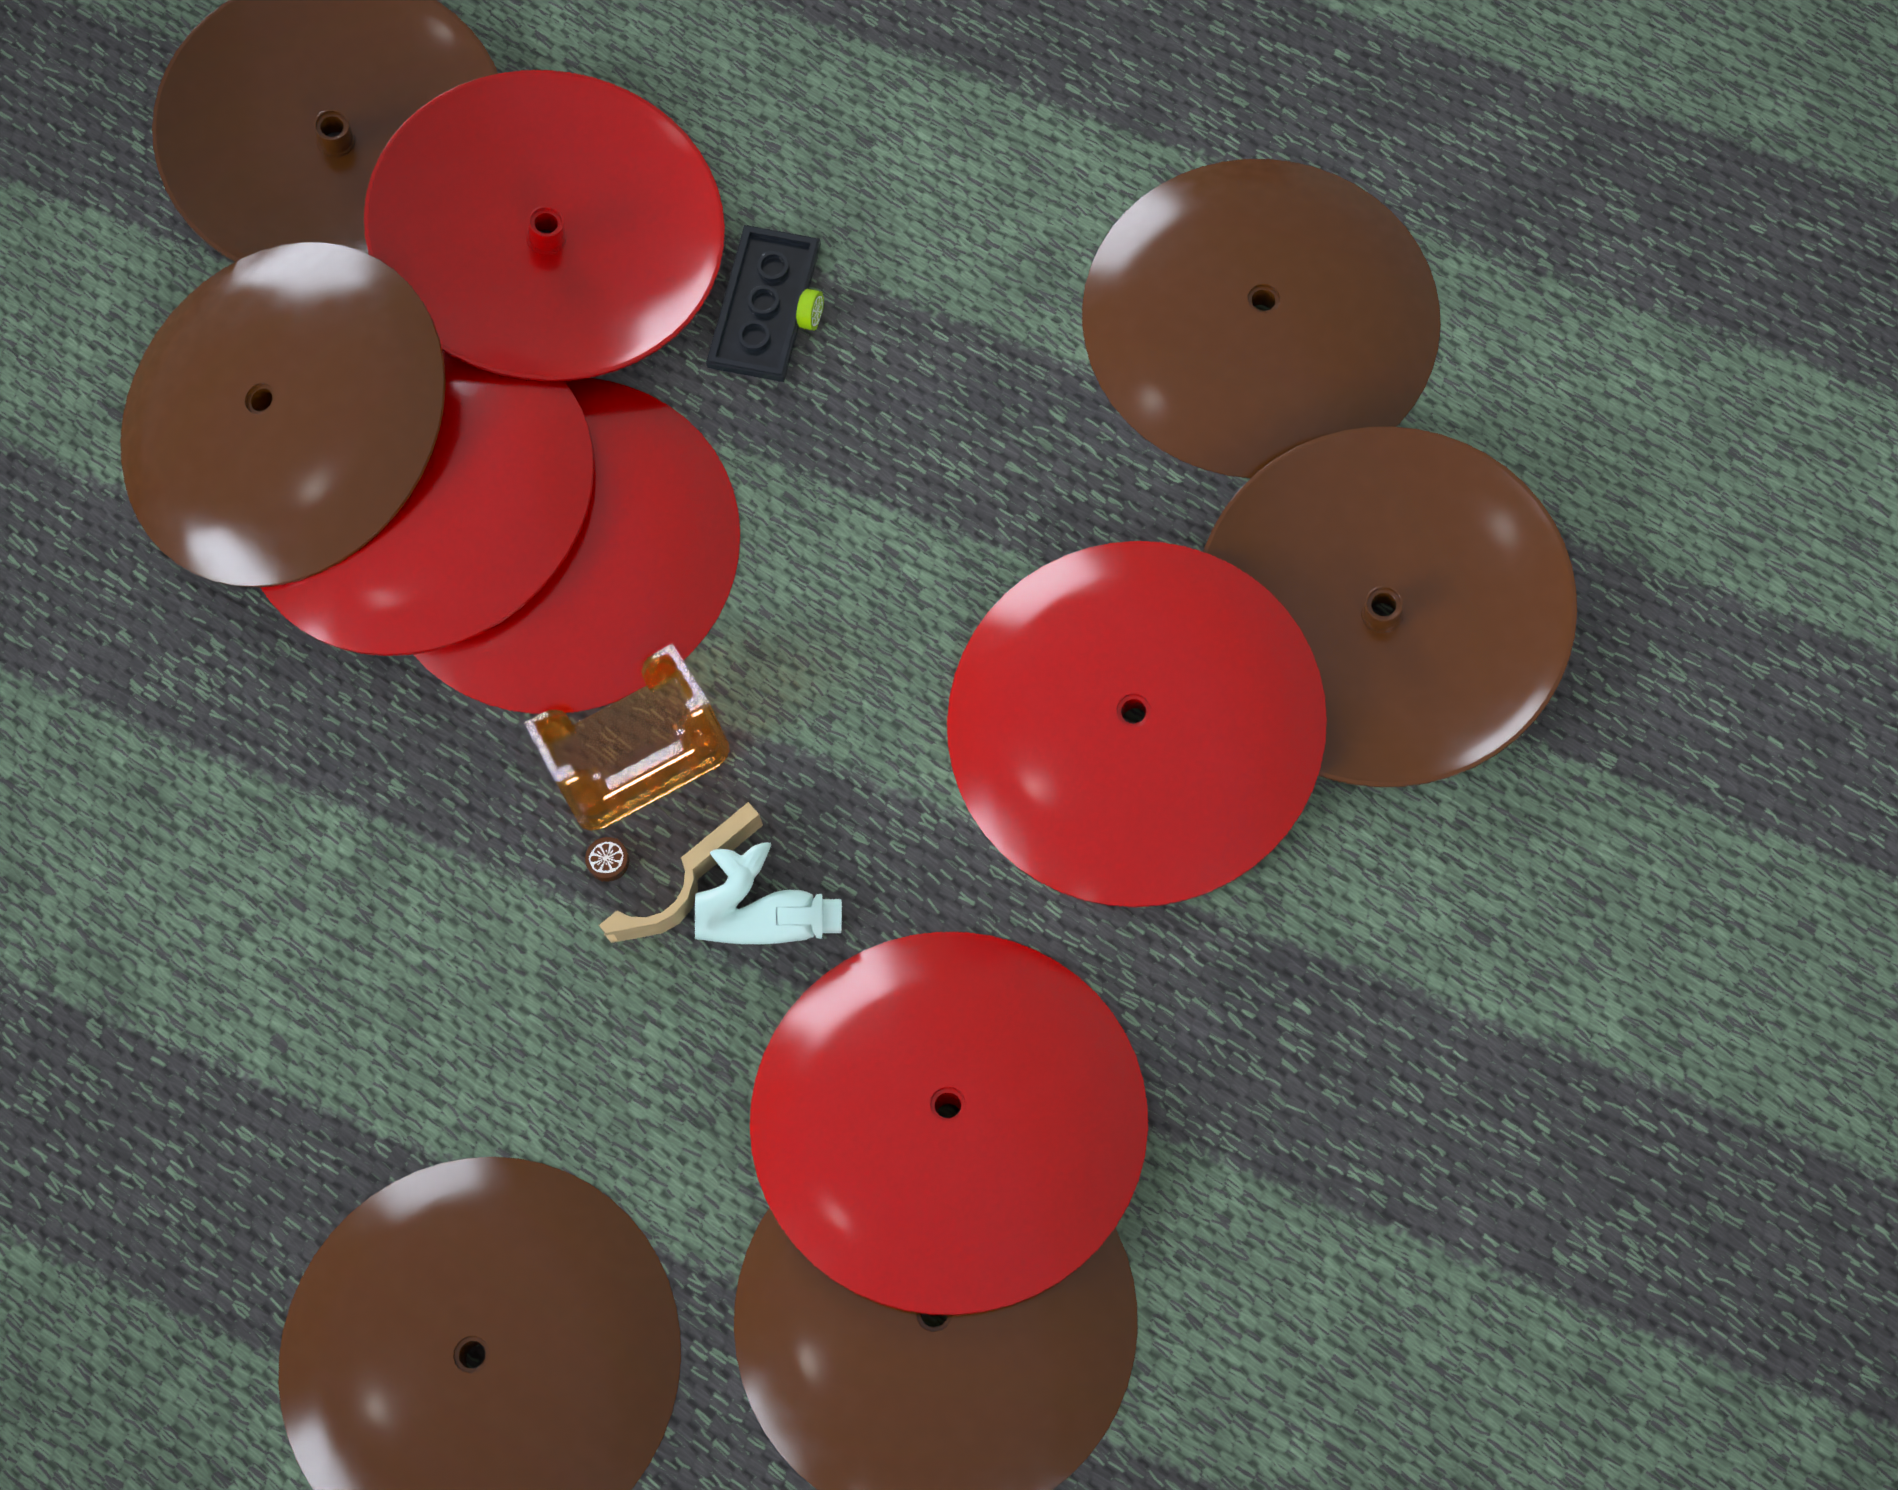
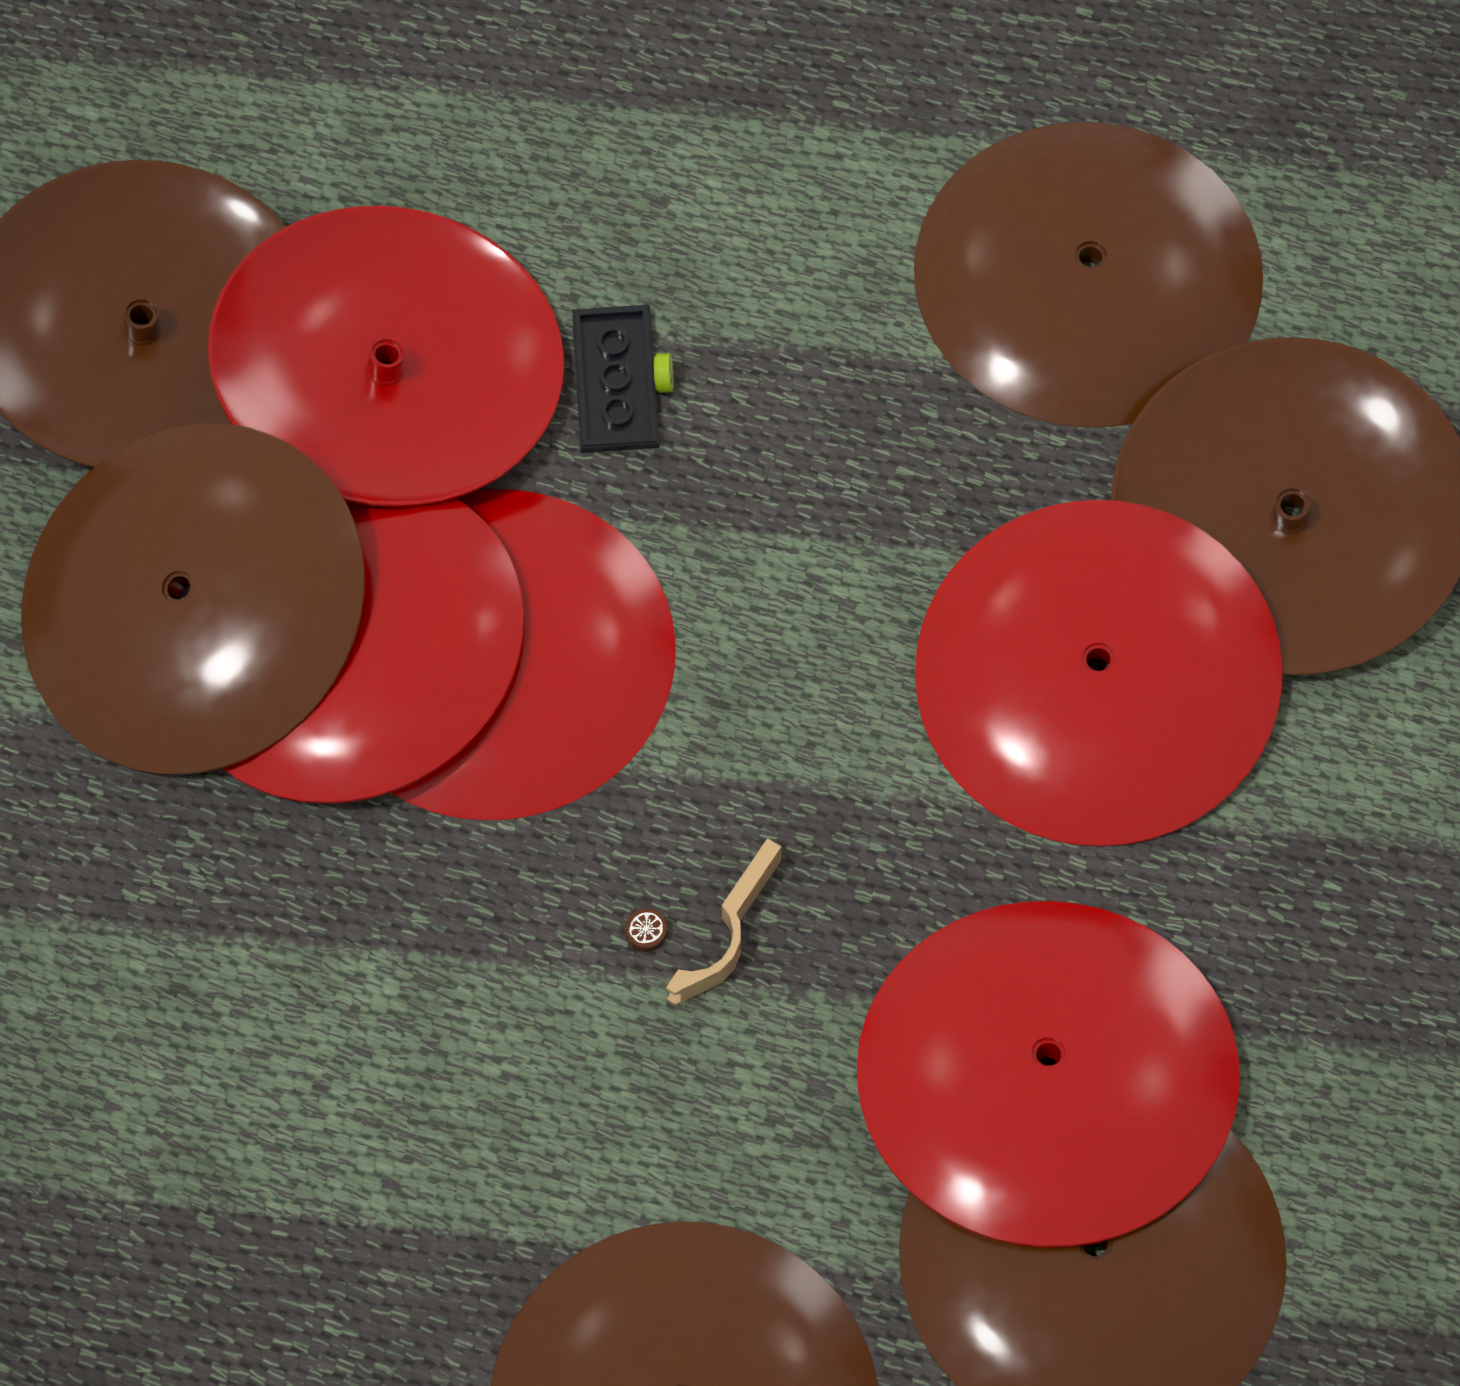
camera: 20 degrees left, 5 degrees down
(633, 746) = (639, 816): clear orange windscreen -> none
(769, 920) = (819, 942): light aqua piece -> none

